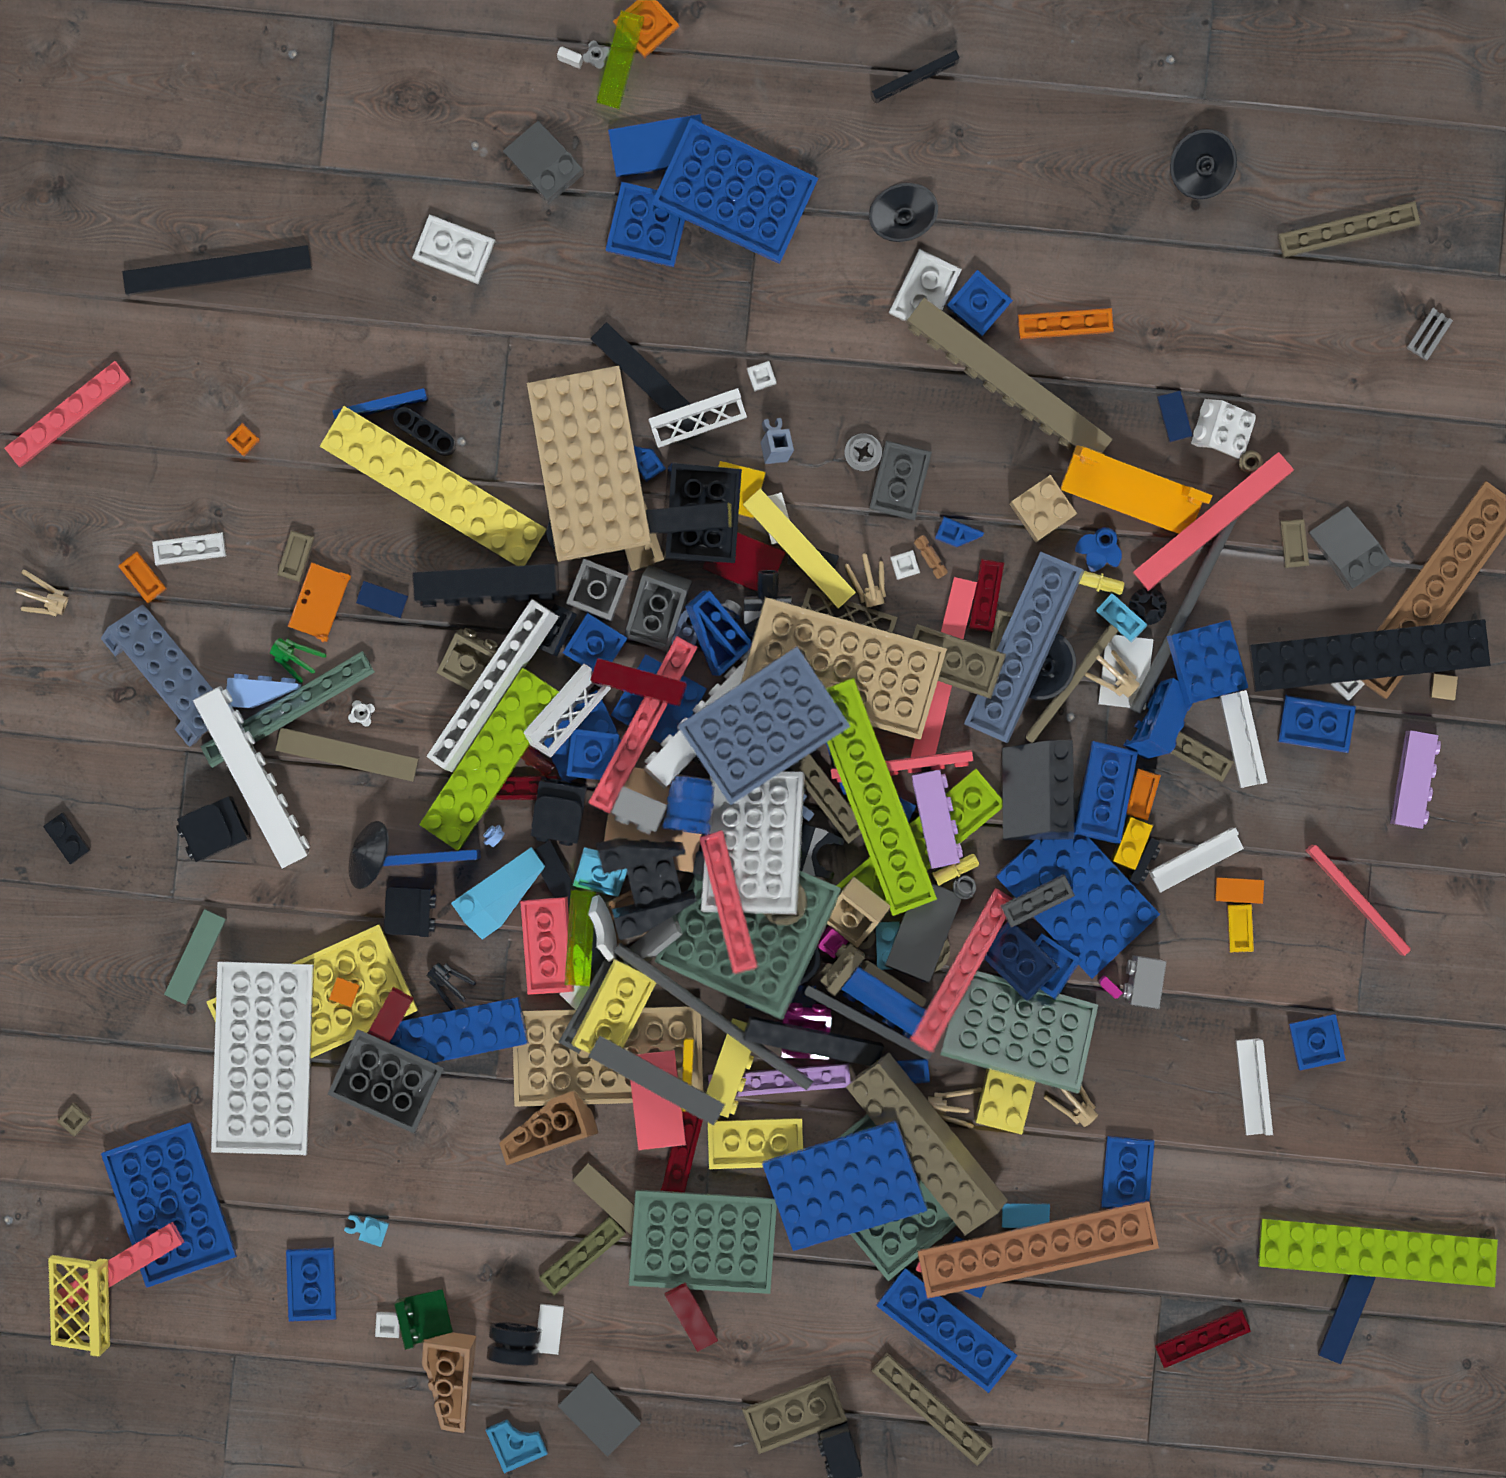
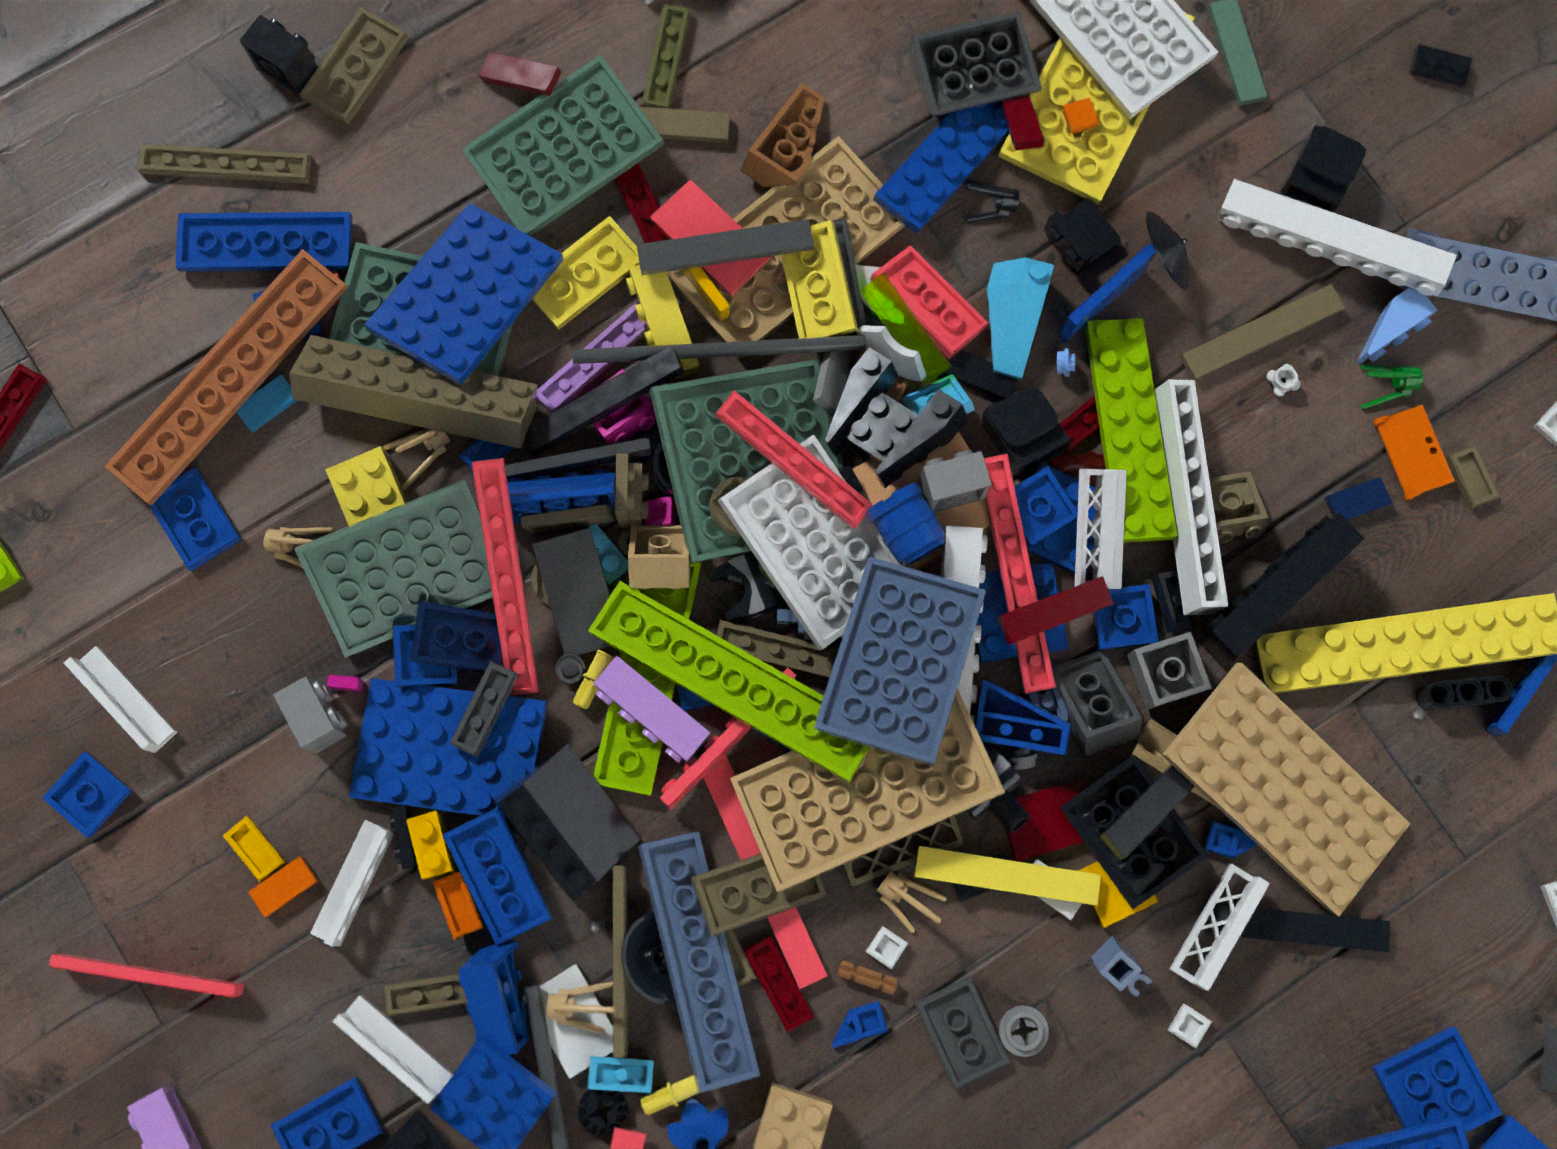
camera: 140 degrees right, 10 degrees down
(299, 702) = (1346, 352): sand green tile -> none

